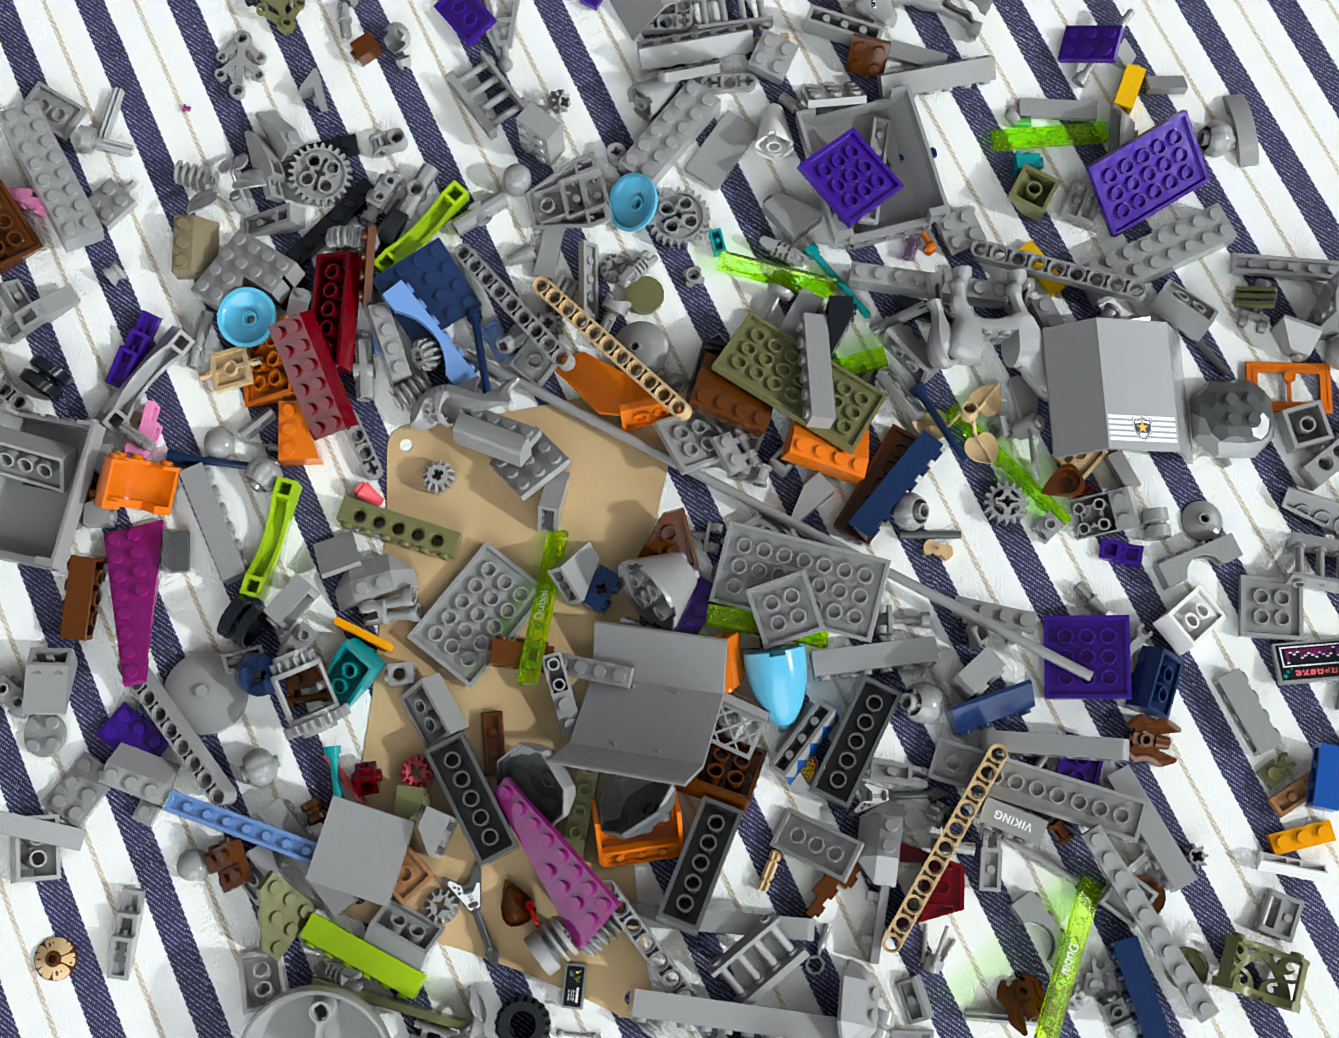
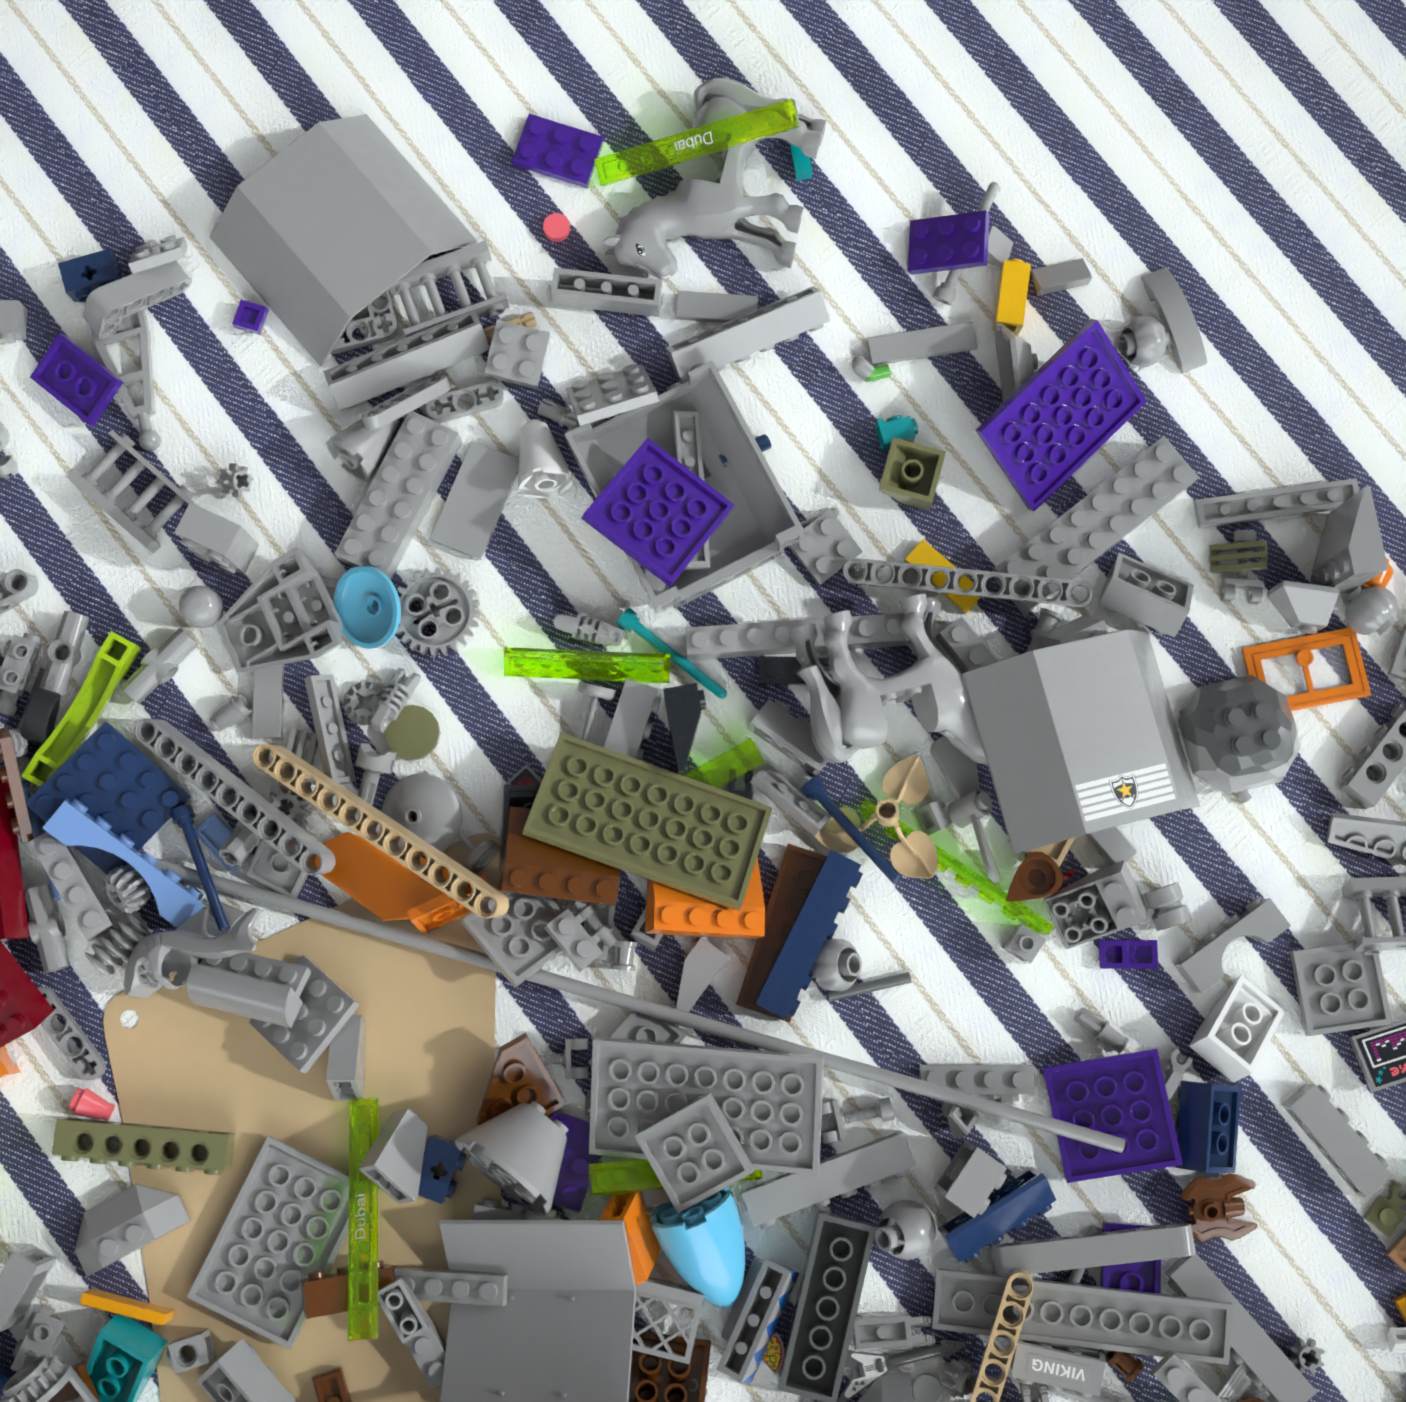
camera: 15 degrees left, 5 degrees up
(337, 554) = (66, 1202): light grey tile -> none
(407, 598) = (140, 1269): light grey piece -> none
(431, 478) = (173, 1055): light grey gear -> none
(615, 148) = (333, 542): light grey wheel -> none
(688, 273) = (467, 687): light grey plate -> none
(717, 241) = (496, 634): teal piece -> none
(791, 216) = (589, 577): light grey slope -> none
(816, 371) = (667, 803): light grey brick -> none
(867, 55) = (647, 324): reddish brown plate -> none
(901, 316) = (765, 692): light grey pin -> none
(911, 247) = (763, 585): clear purple pin -> none
(930, 246) = (788, 579): orange hand -> none
(937, 549) = (883, 1005): tan piece -> none
(996, 503) = (959, 908): light grey gear -> none
(1049, 136) = (917, 384): clear neon green plate -> none
(1075, 205) = (973, 473): light grey plate -> none
(1193, 524) = (1213, 887): light grey dish -> none
(1211, 356) = (1197, 652): dark grey bar -> none
(1303, 426) = (1337, 727): light grey brick -> none

